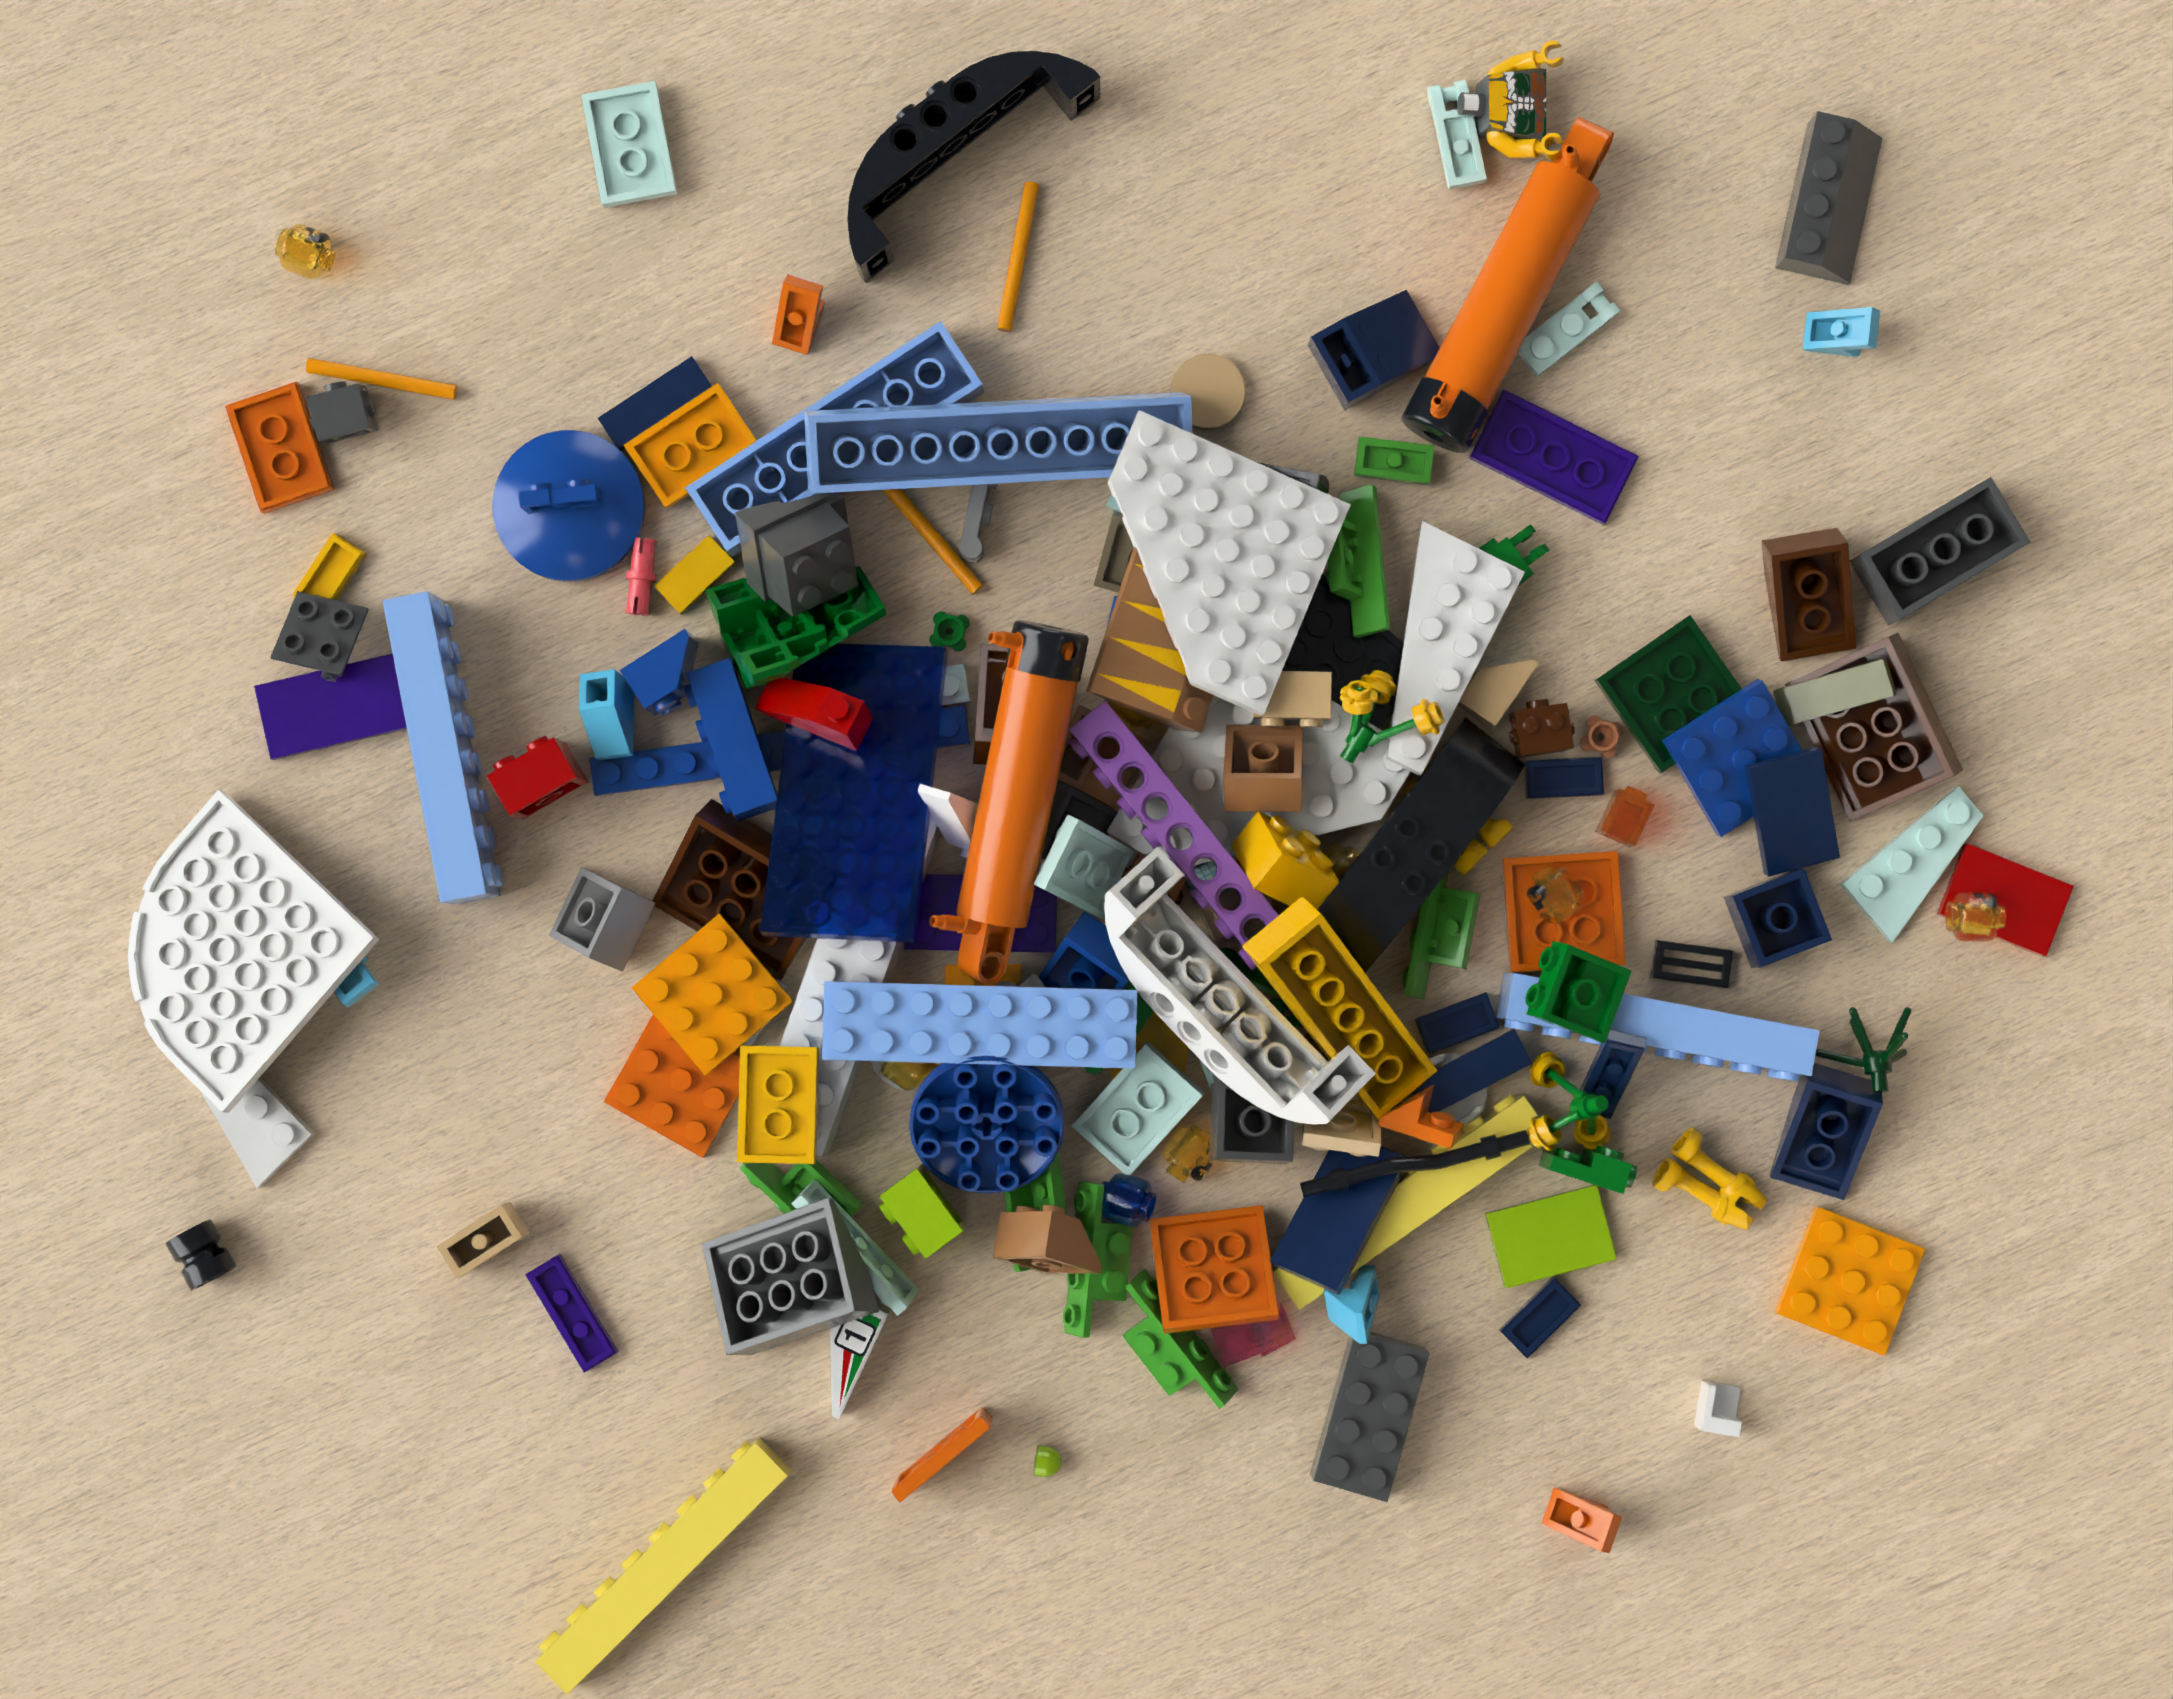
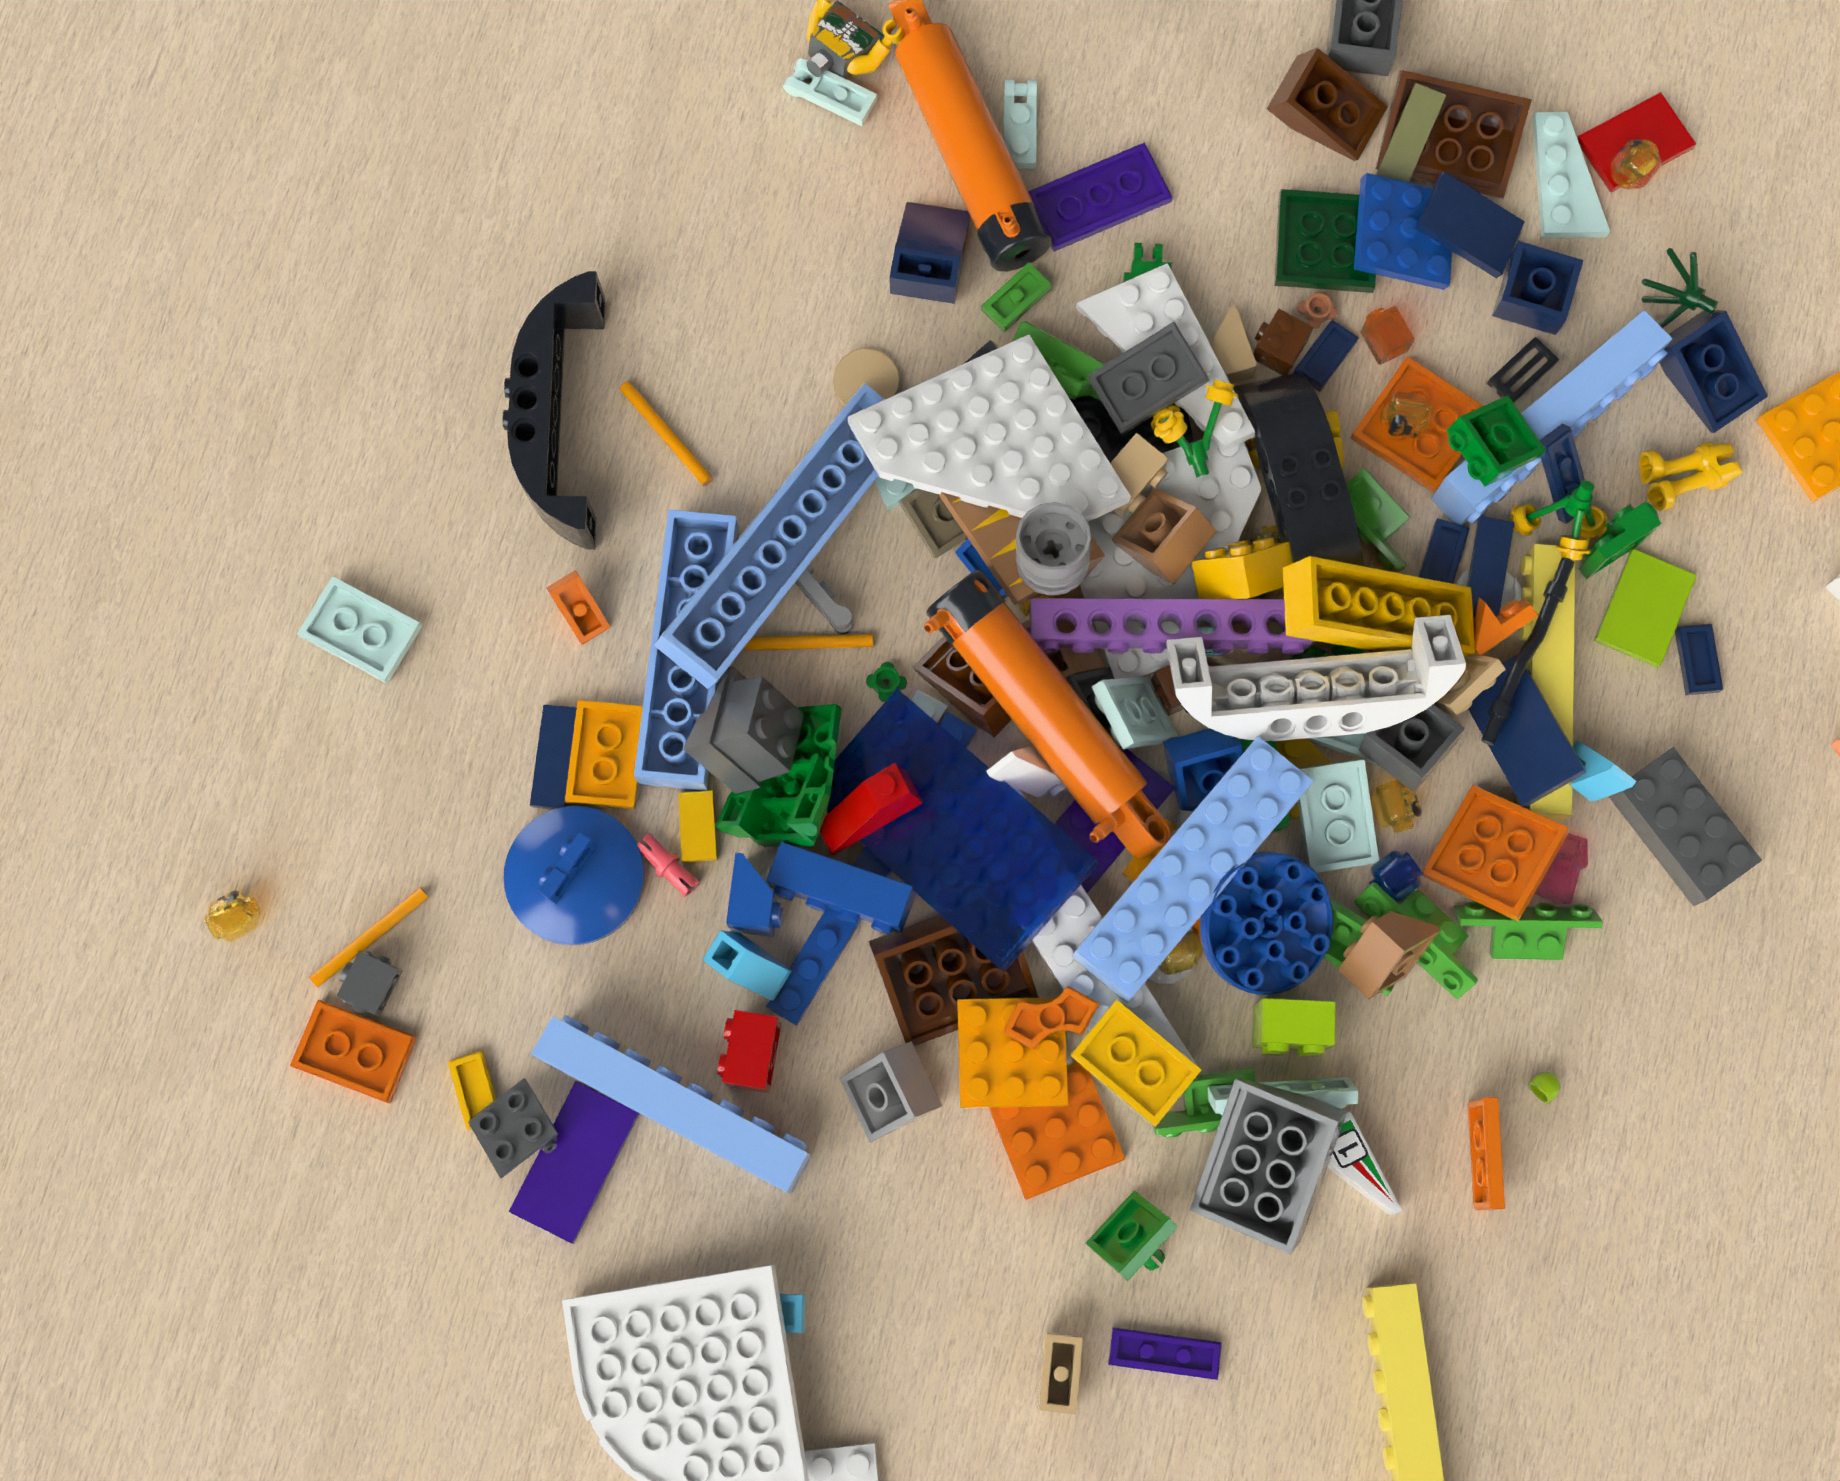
camera: 55 degrees left, 10 degrees down
(639, 1213) = (1132, 1236): none -> green tile
(777, 1015) = (1033, 1023): none -> orange tile
(1158, 664) = (1058, 532): none -> light grey wheel
(1397, 641) = (1148, 378): none -> dark grey tile

